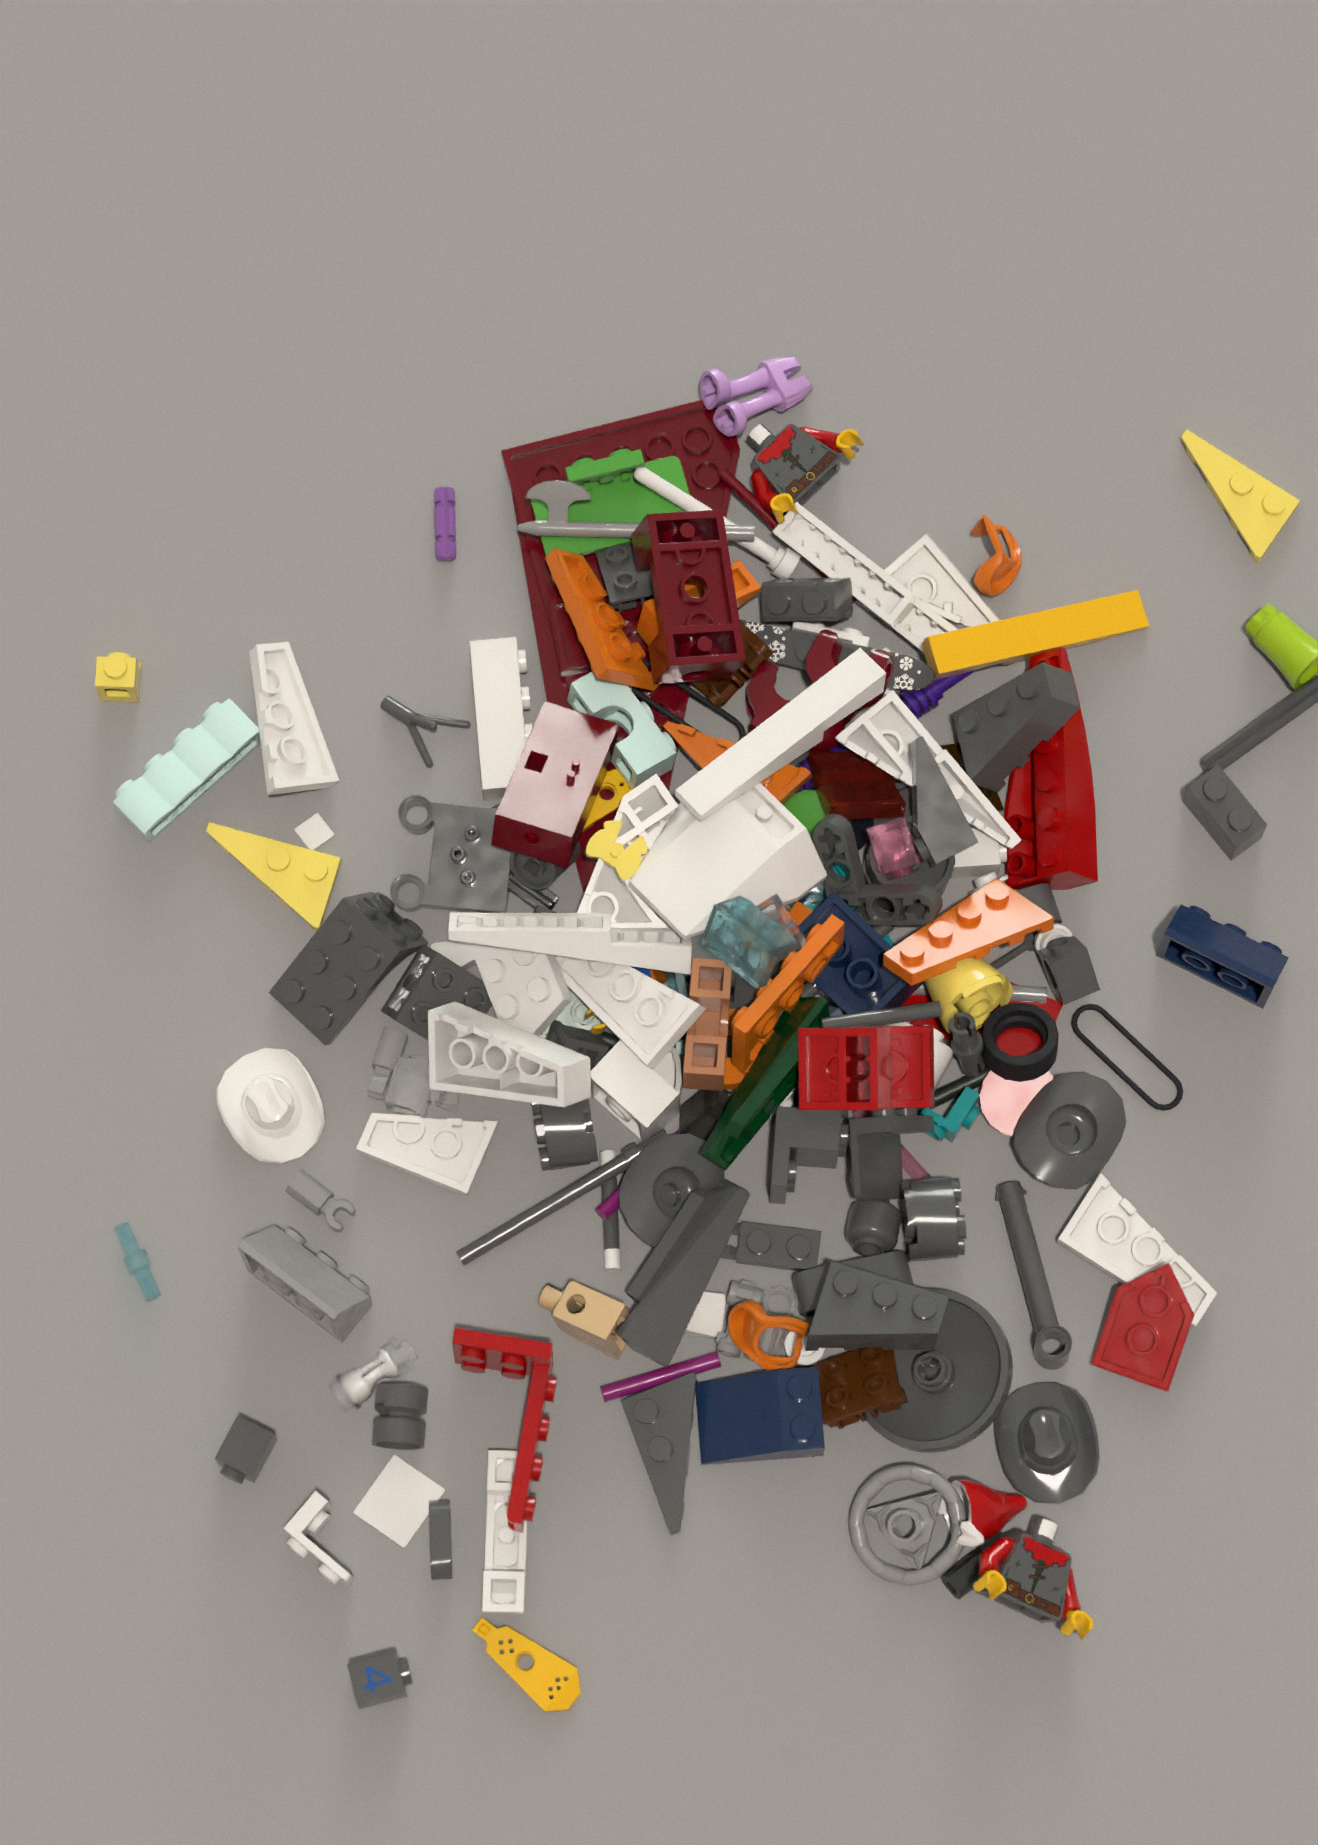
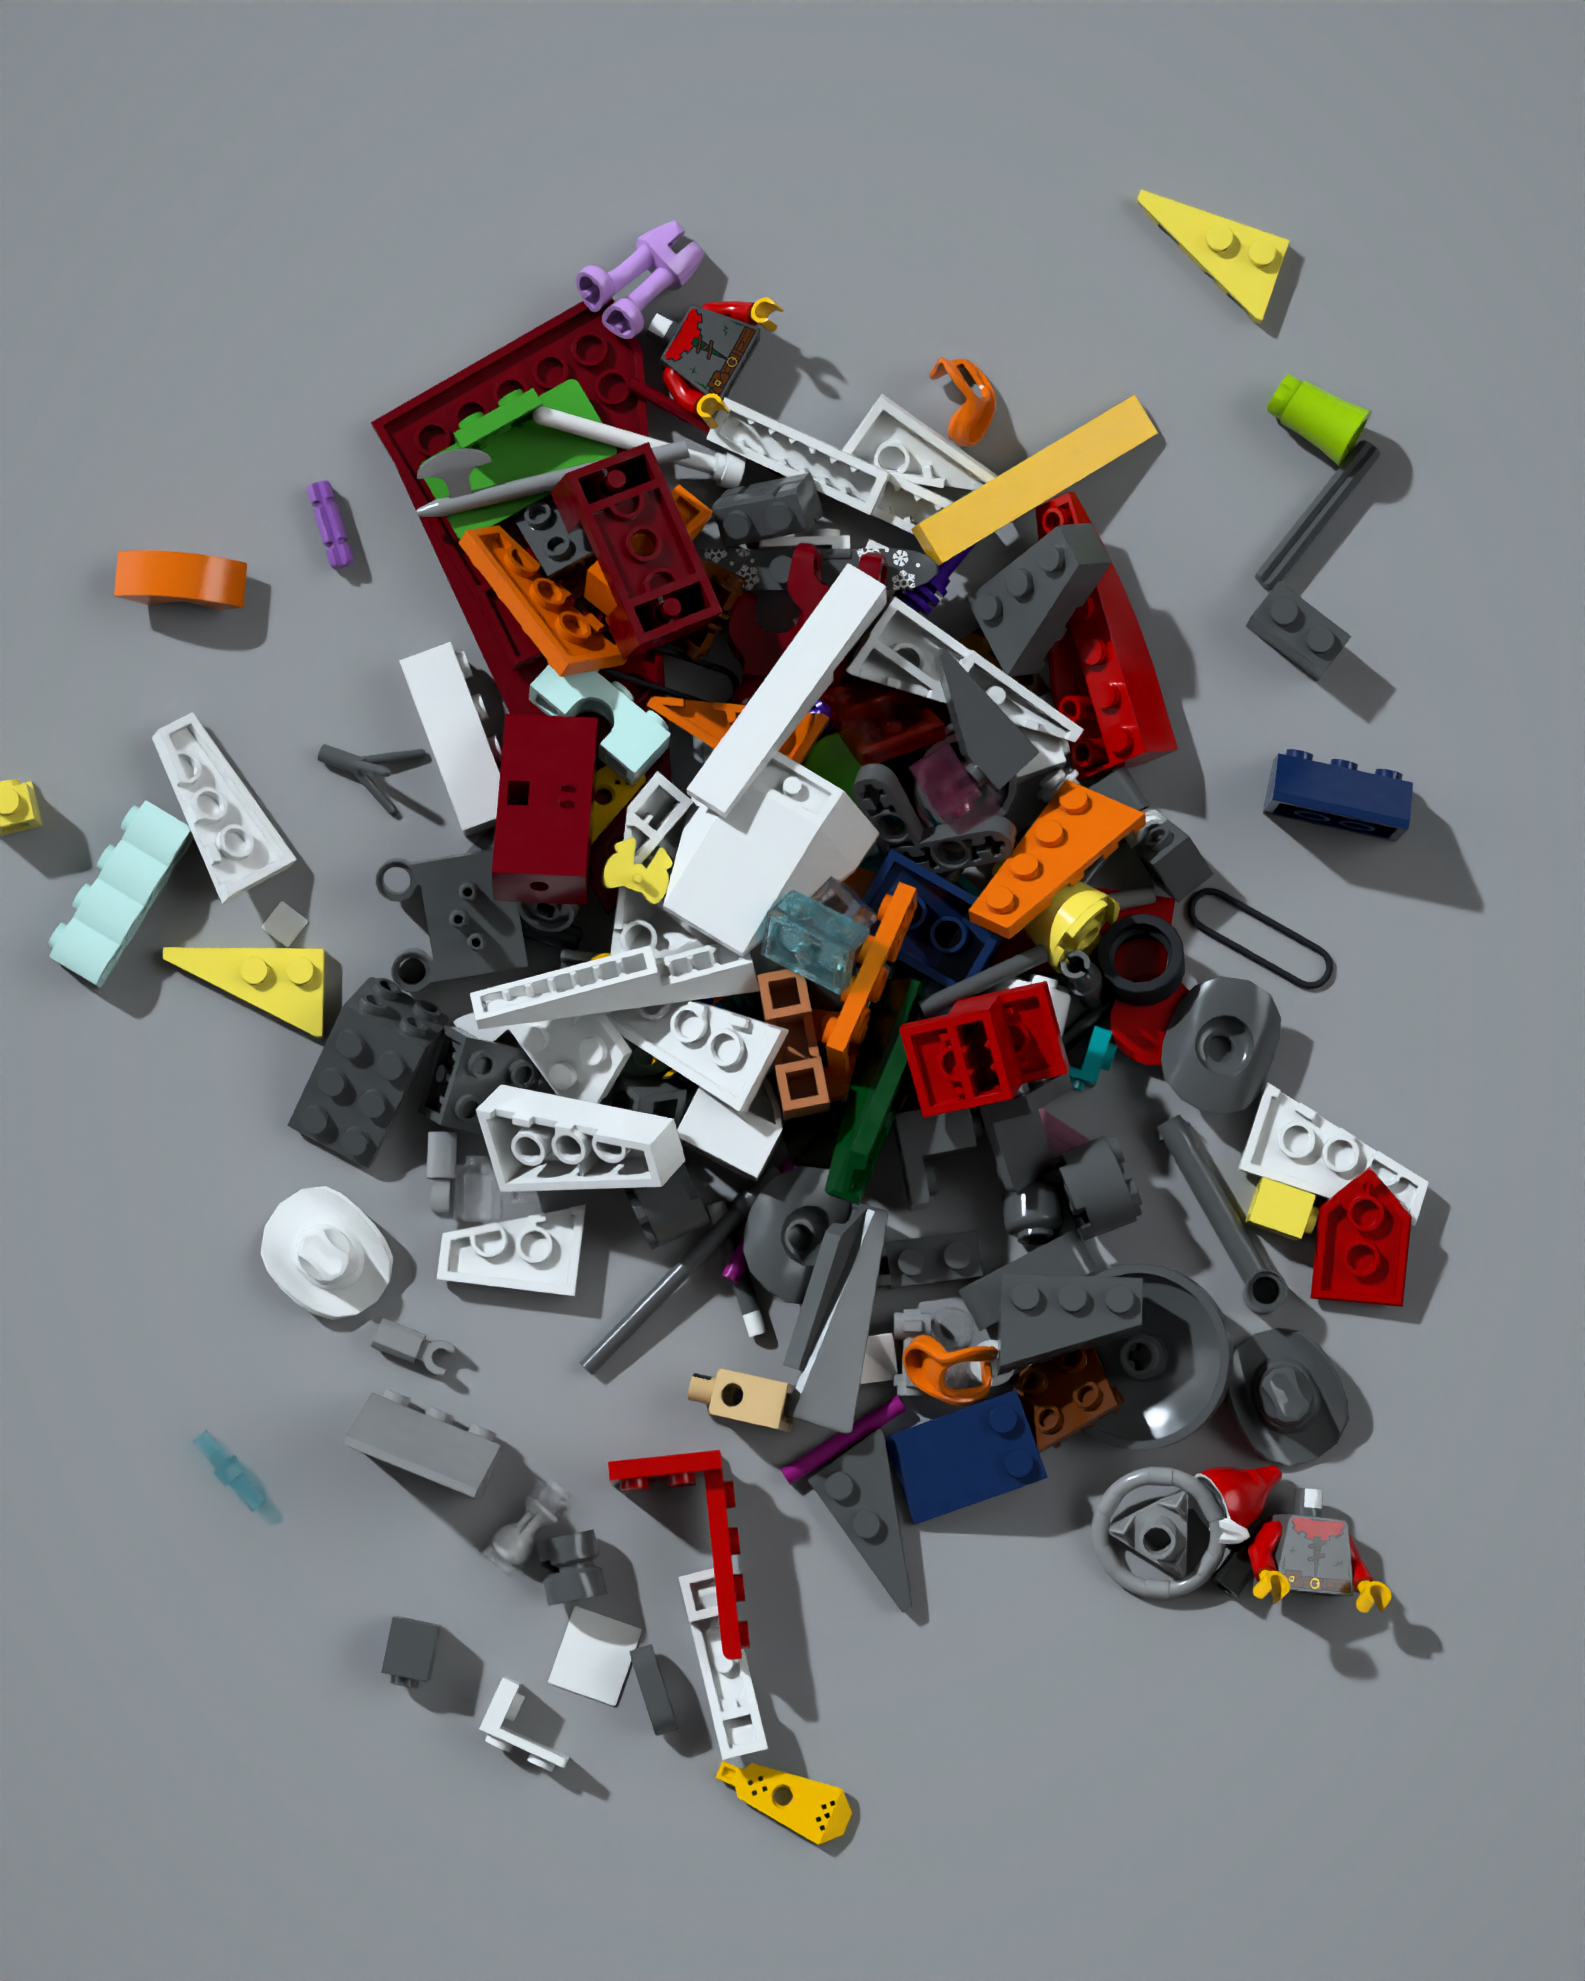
camera: 20 degrees left, 10 degrees up
(305, 528) = (180, 577): none -> orange brick
(379, 1679) = (630, 1862): dark grey brick -> none
(1085, 1283) = (1282, 1209): none -> light yellow brick

